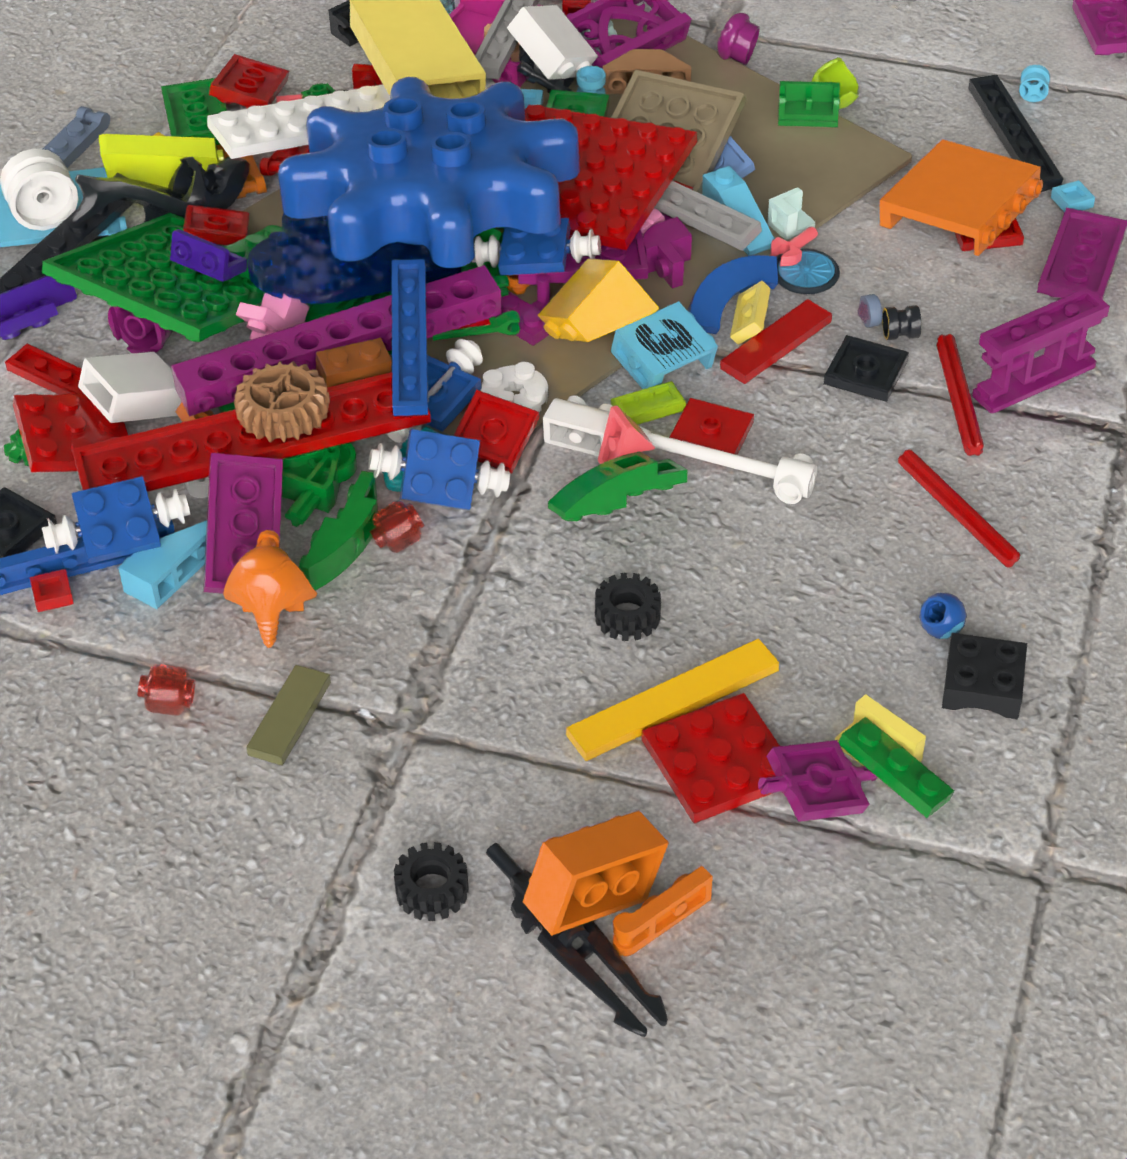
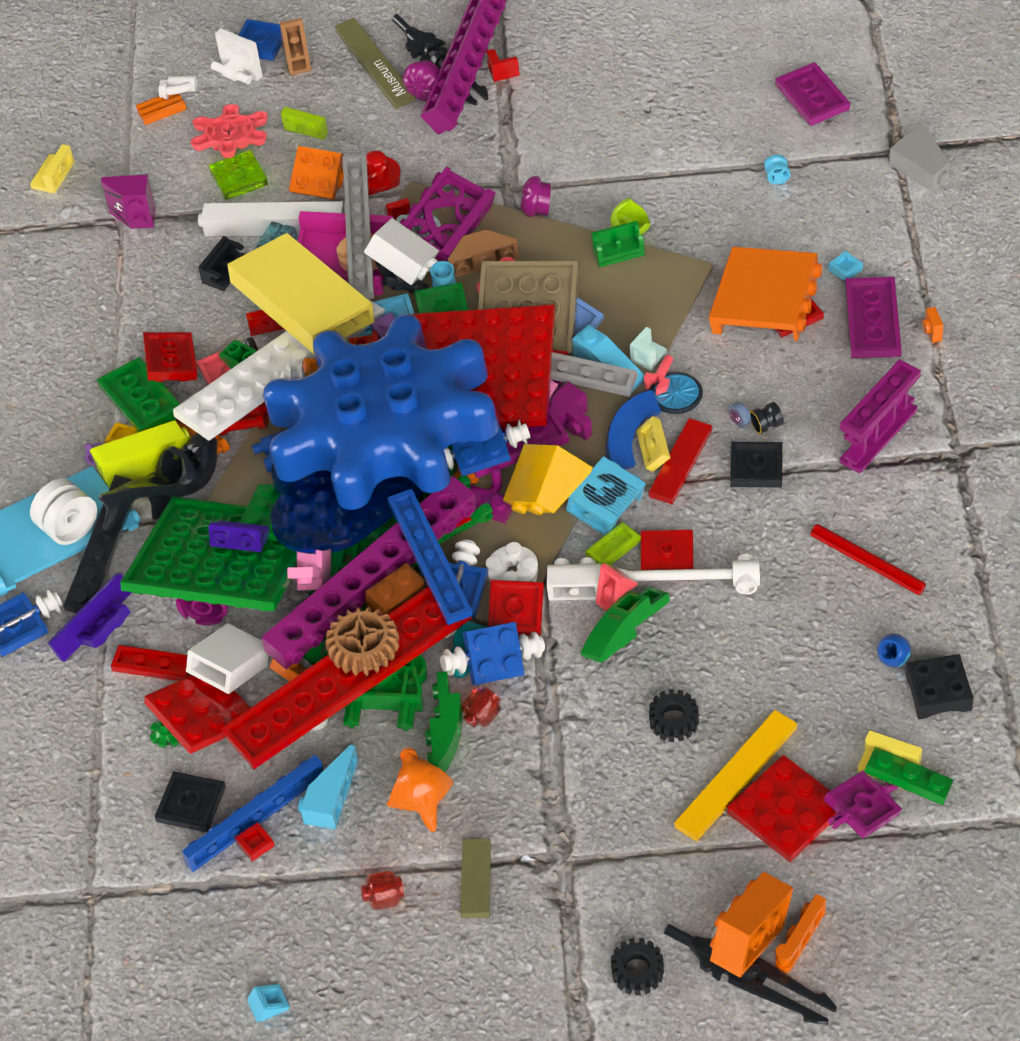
camera: 15 degrees left, 5 degrees up
(78, 134) = (49, 448): sand blue plate -> none
(116, 520) = (284, 774): blue plate -> none
(216, 224) = (216, 498): red tile -> none
(241, 505) = (371, 741): magenta plate -> none
(960, 395) = (831, 464): red axle -> none
(1013, 128) = (777, 216): black plate -> none

